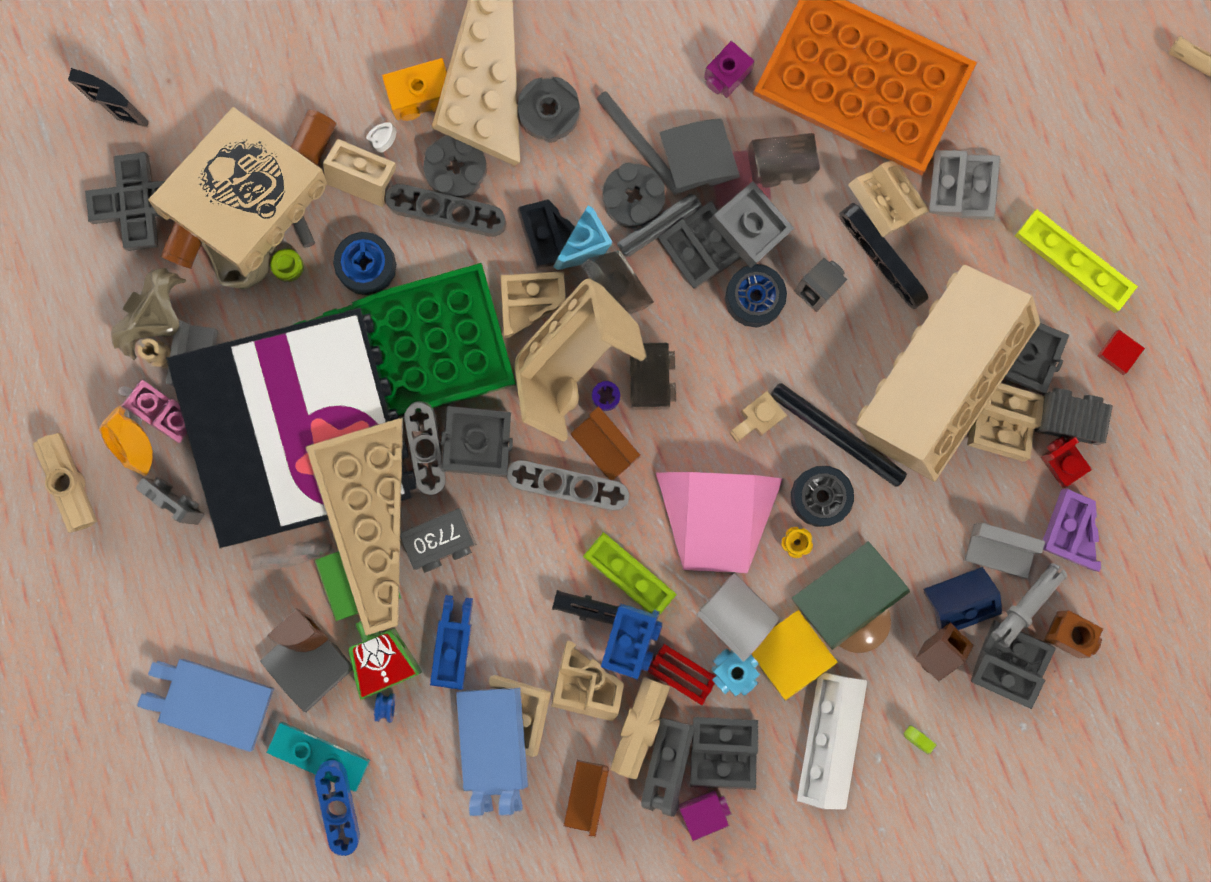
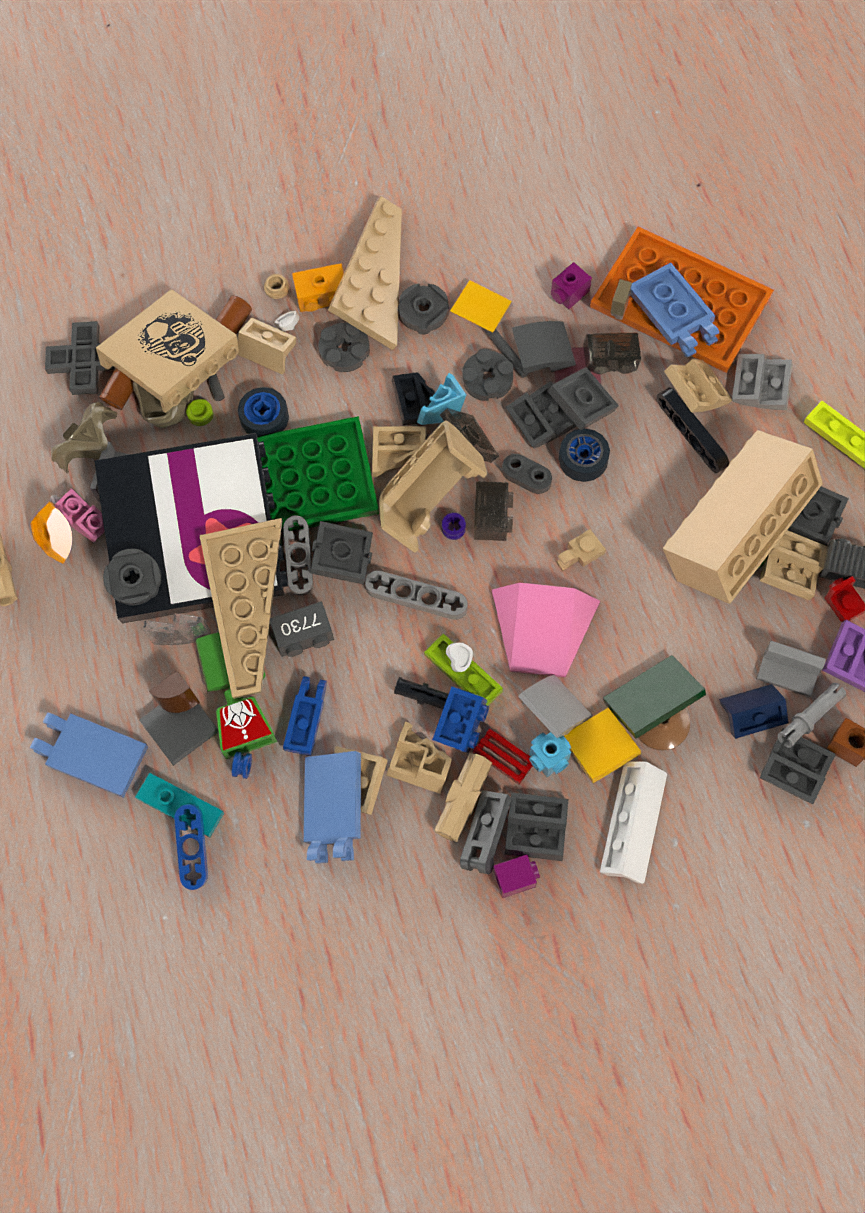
camera: 10 degrees right, 15 degrees down
(106, 95) = (73, 277): black slope -> none
(155, 352) = (84, 465): tan pin -> none
(160, 493) = (86, 587): dark grey wing -> none
(241, 485) = (144, 588): none -> dark grey plate
(360, 81) = (276, 281): none -> tan plate
(445, 213) = (331, 383): dark grey beam -> none
(586, 796) = (411, 855): dark orange panel -> none
(605, 444) = (451, 563): dark orange panel -> none
(619, 102) = (481, 306): none -> yellow sticker
(625, 563) = (460, 656): none -> white piece
(659, 225) = (506, 398): dark grey axle -> none
(687, 324) = (525, 474): none -> dark grey plate
(792, 91) = (621, 299): none -> dark tan piece
(805, 542) = (610, 645): yellow plate -> none
(820, 283) = (637, 447): dark grey slope -> none
(834, 484) = (645, 608): wheel -> none
(838, 435) = (650, 568): black axle -> none
(857, 96) = (675, 308): none -> medium blue tile
(919, 740) = (711, 824): lime tile -> none
(944, 652) = (735, 748): reddish brown brick -> none

